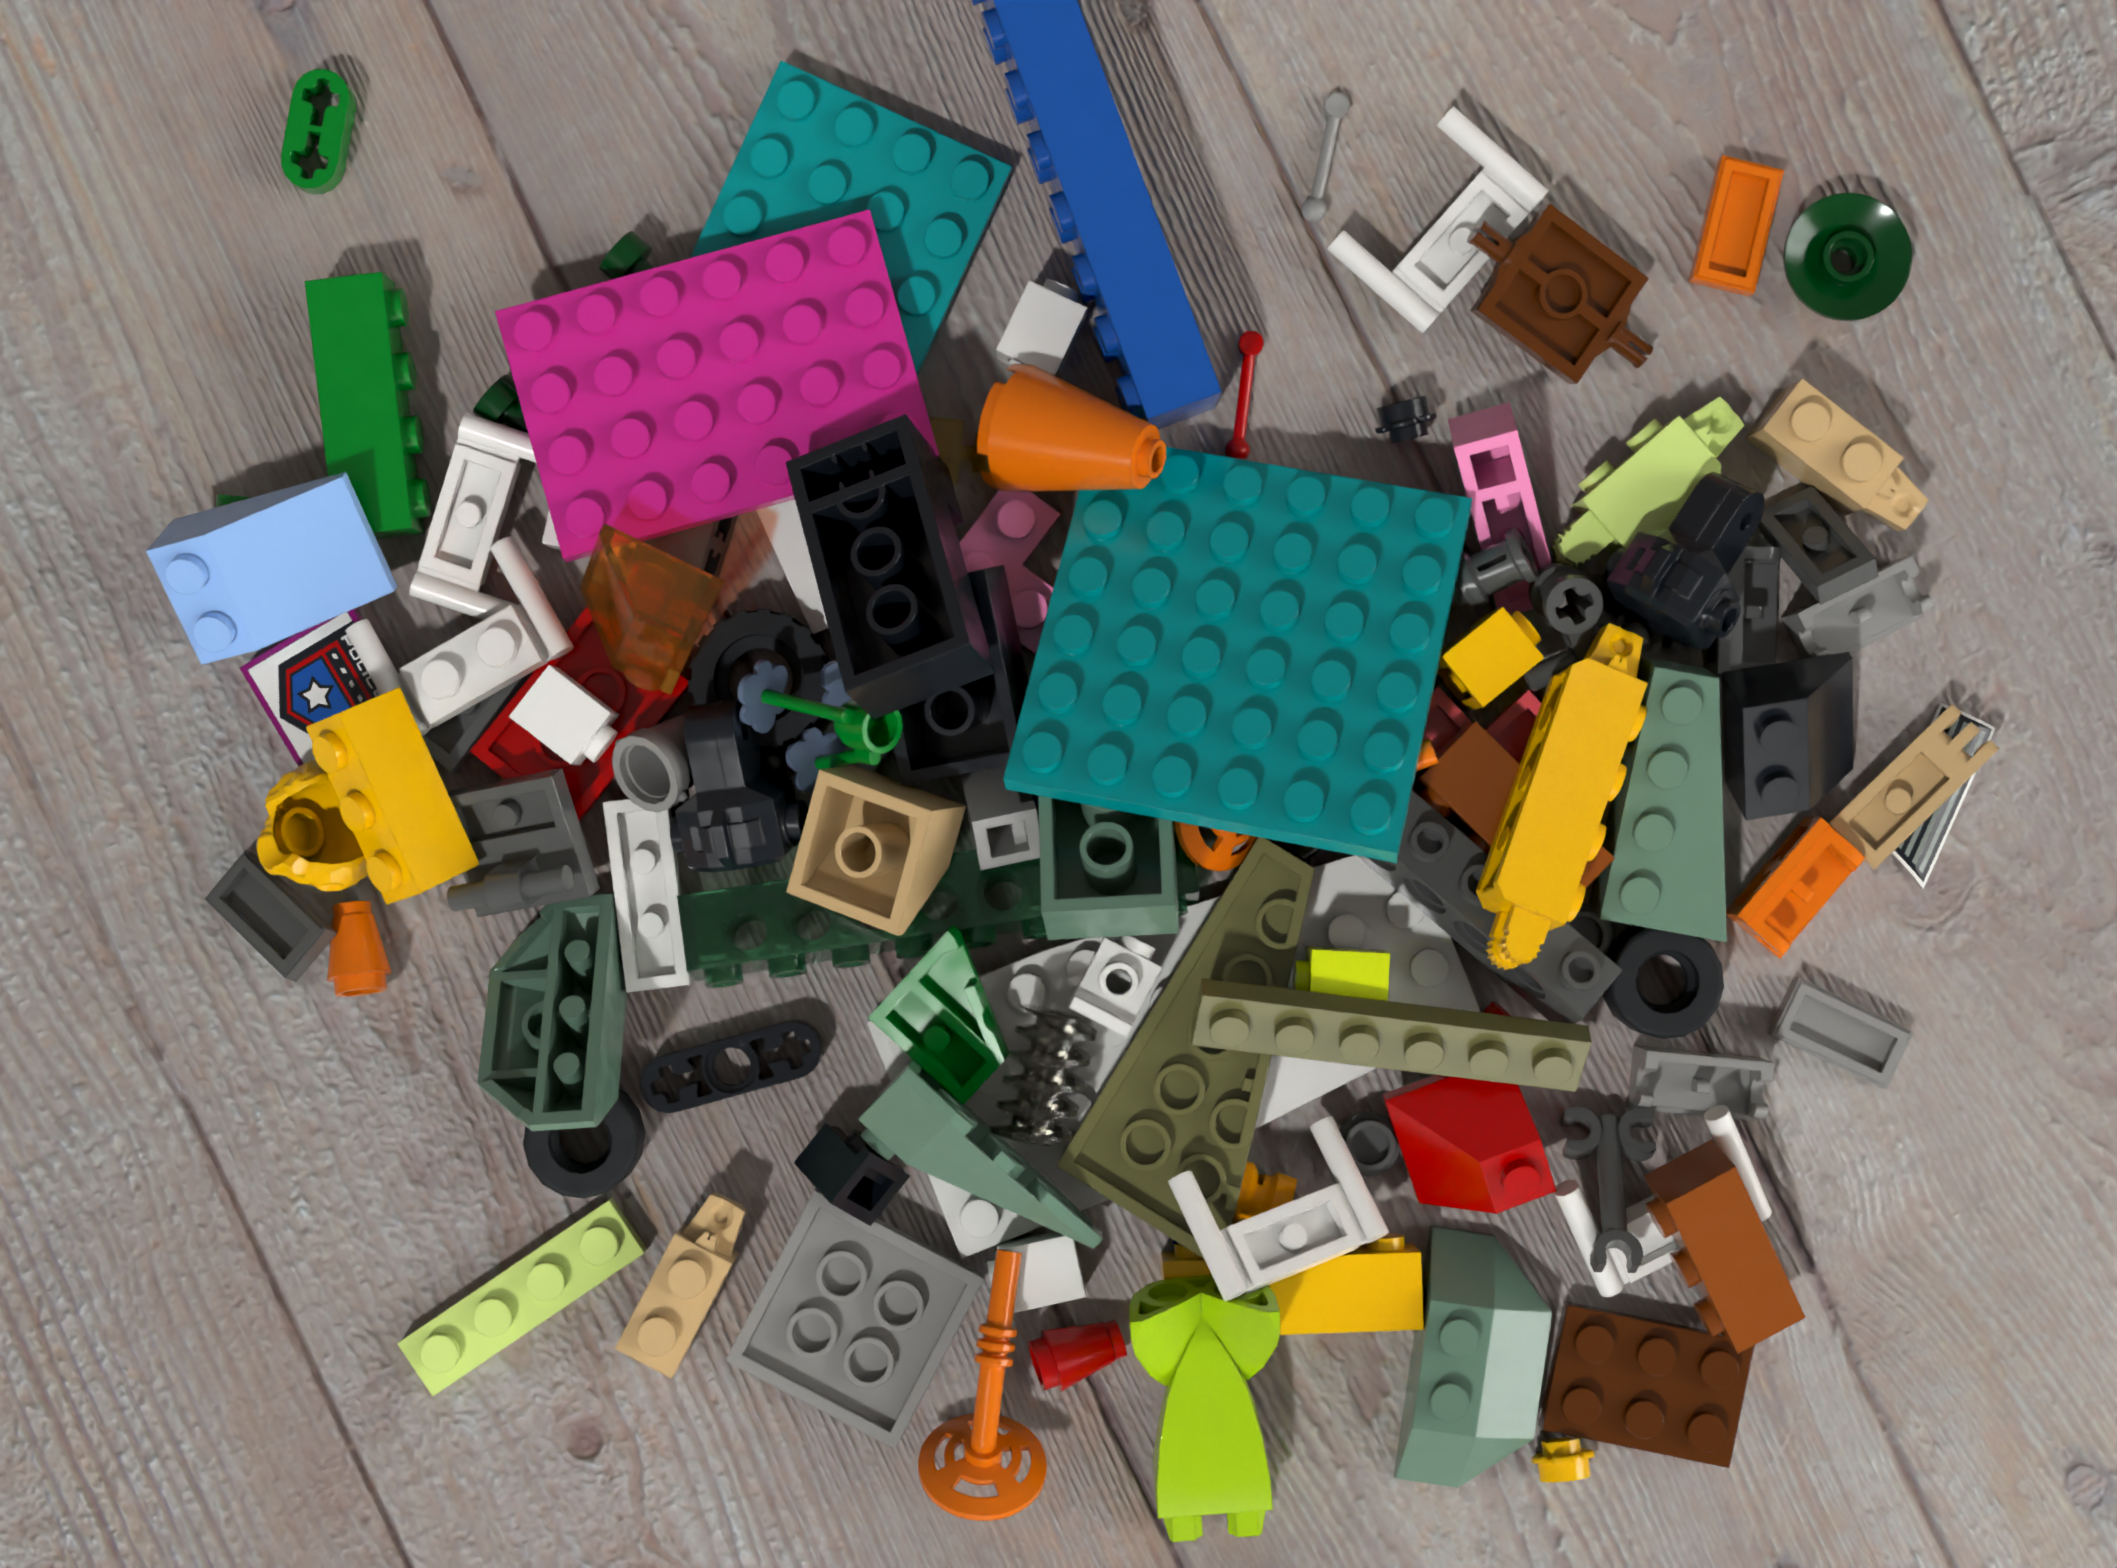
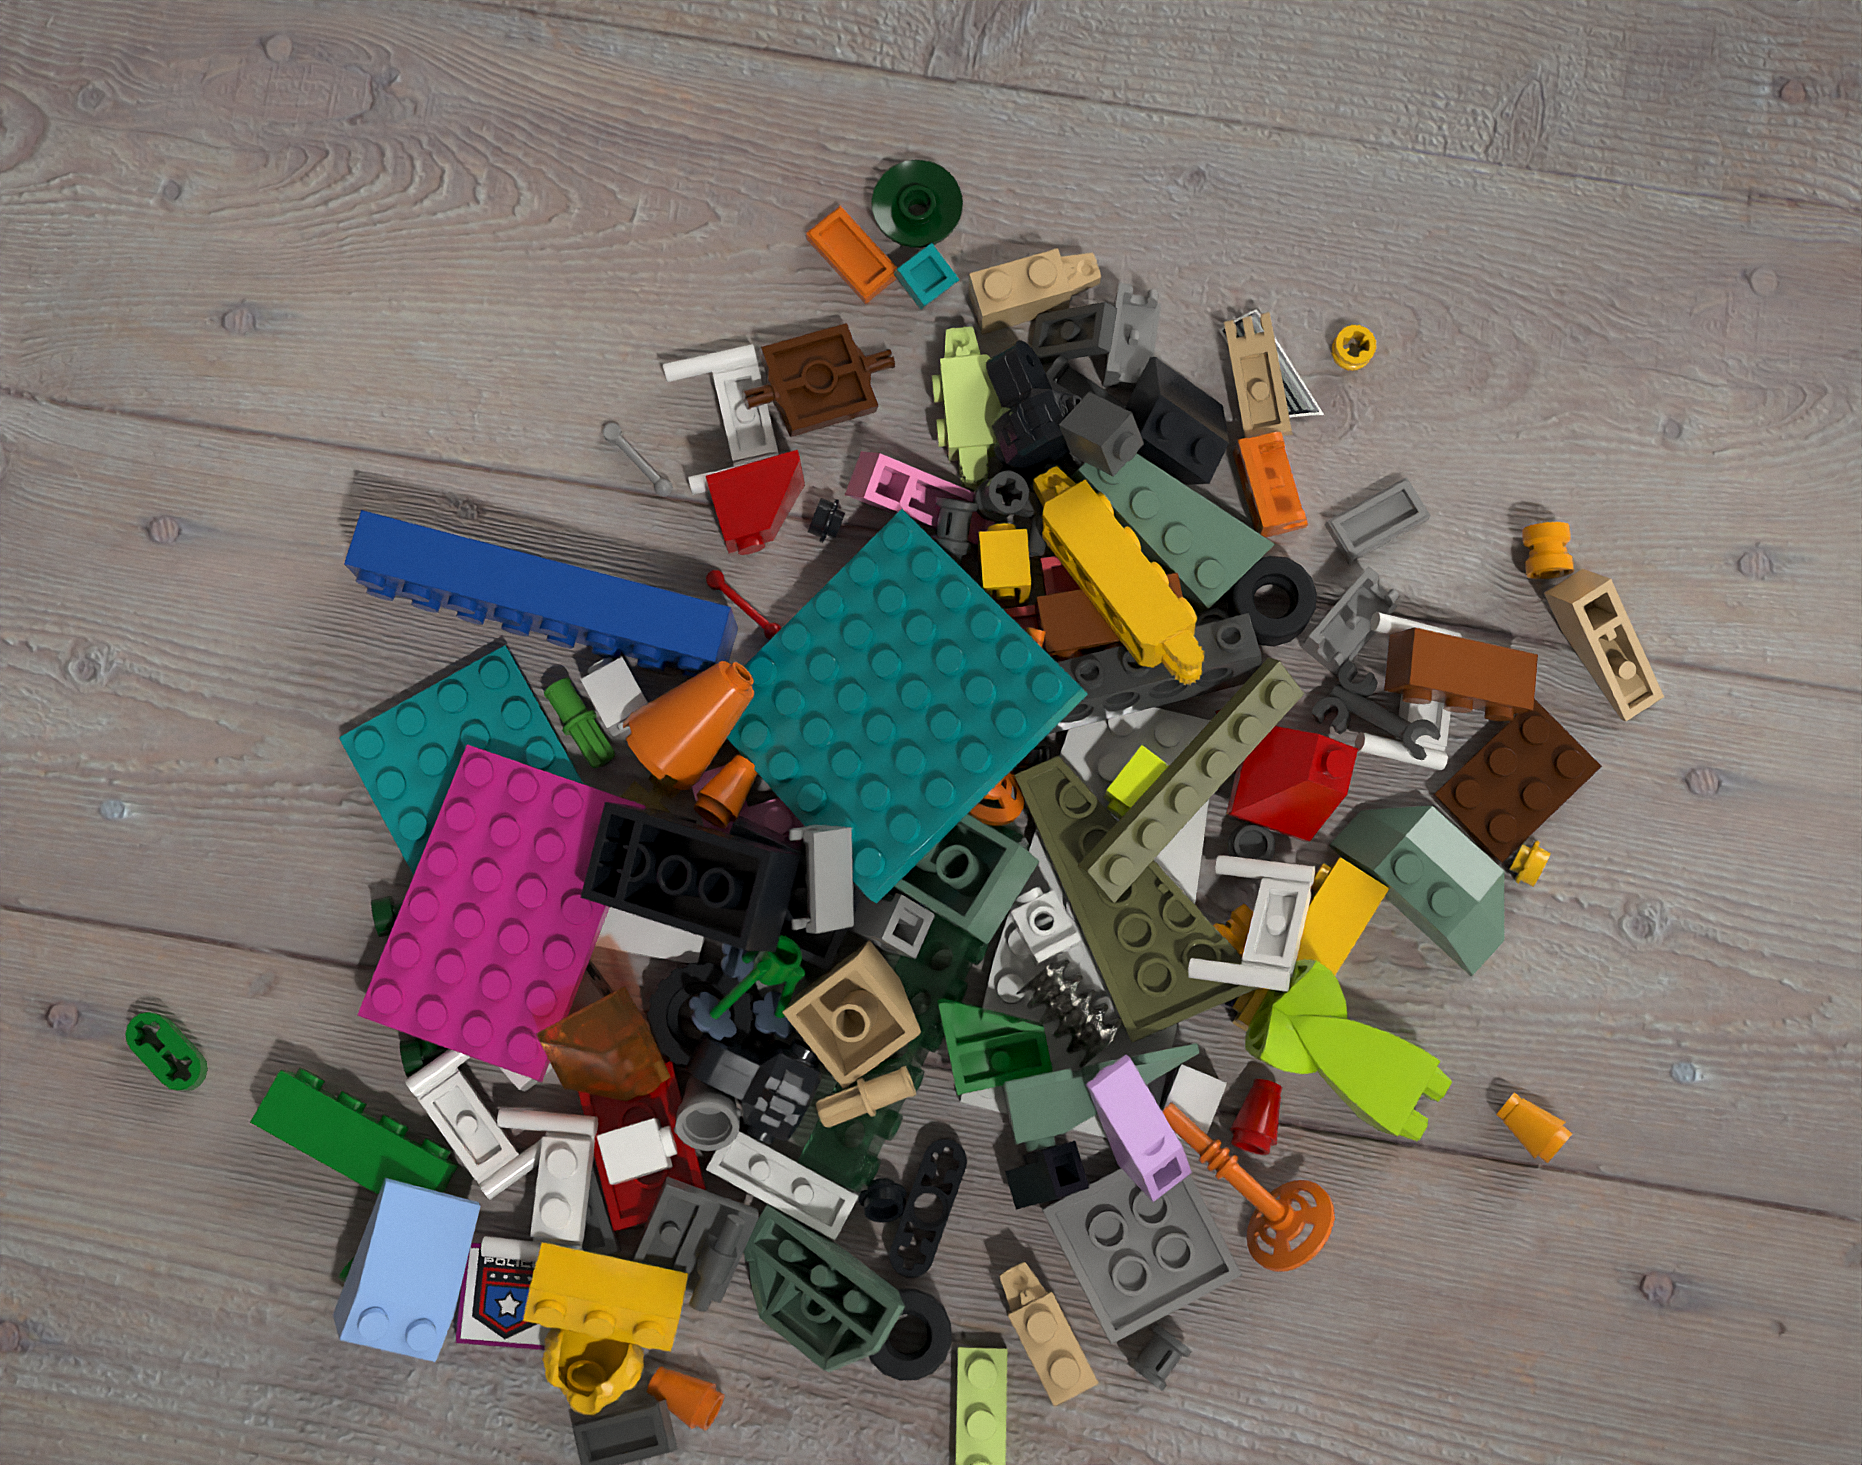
camera: 50 degrees left, 10 degrees down
(705, 1013) = (883, 1200): none -> black plate
(748, 1419) = (1159, 1357): none -> dark grey bush
(793, 923) = (865, 1097): none -> tan axle
(963, 1240) = (1138, 1129): none -> lavender slope
(984, 313) = (579, 723): none -> bright green axle
(992, 717) = (827, 878): none -> light grey hinge
(1018, 532) = (726, 792): none -> orange cone
(1366, 326) = (755, 500): none -> red slope
(1711, 667) = (1101, 434): none -> dark grey brick
(1768, 329) = (926, 276): none -> teal plate
(1876, 1378) = (1605, 641): none -> tan slope
(1933, 1250) = (1547, 554): none -> light orange wheel
(2006, 861) = (1341, 355): none -> yellow bush

